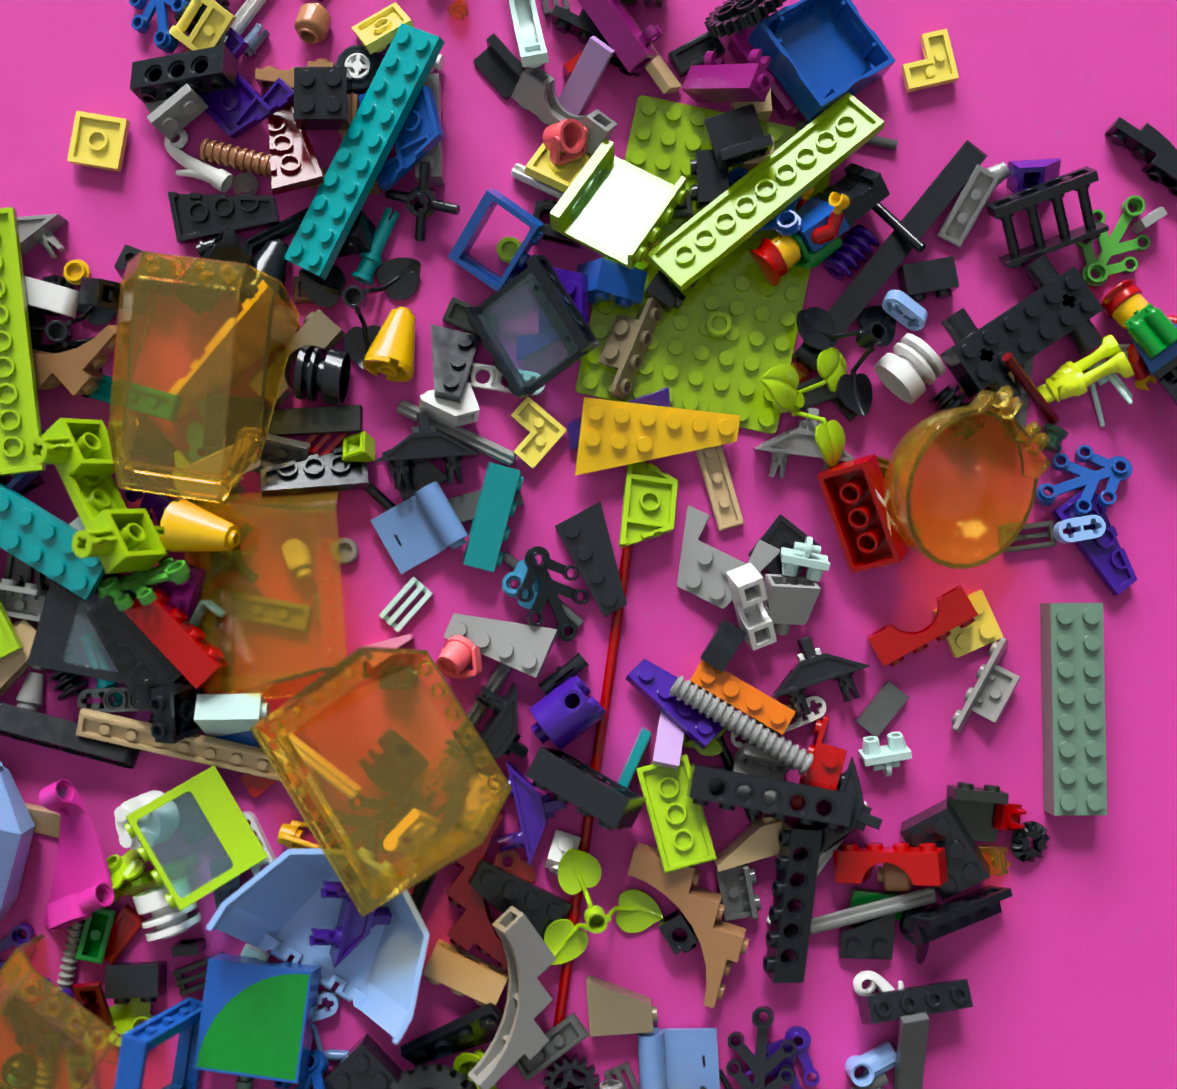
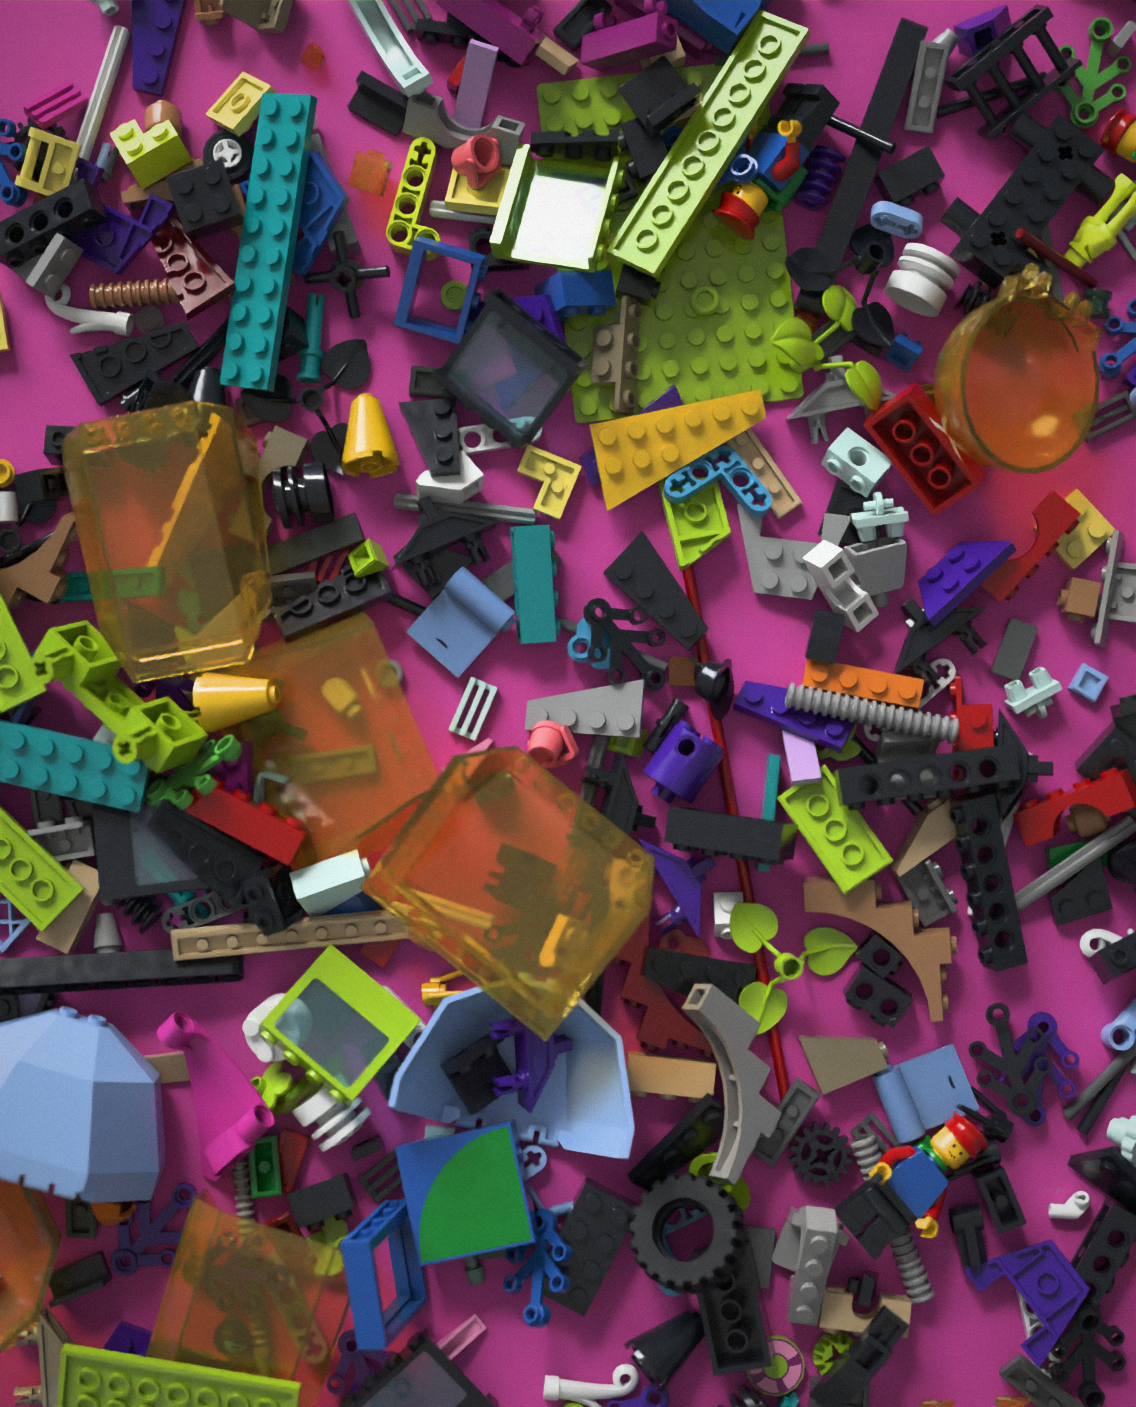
camera: 25 degrees left, 0 degrees up
(290, 43) = (152, 153): none -> neon yellow brick
(297, 915) = (473, 1072): none -> black bracket
(472, 122) = (370, 172): none -> brick
(504, 154) = (413, 195): none -> neon yellow beam
(526, 681) = (628, 745): none -> lime slope
(594, 632) = (682, 671): none -> reddish brown tile
(616, 655) = (715, 685): none -> black piece
(652, 158) = (585, 144): none -> black wing
(668, 964) = (881, 990): none -> black brick
(685, 475) = (724, 472): none -> dark azure beam
(801, 492) = (851, 449): none -> light aqua brick
(856, 631) = (960, 574): none -> dark purple wing
(873, 425) = (903, 352): none -> blue tile
(935, 758) = (1088, 682): none -> light blue tile
(951, 685) = (1078, 599): none -> medium nougat brick
(1019, 230) = (989, 95): none -> black bar

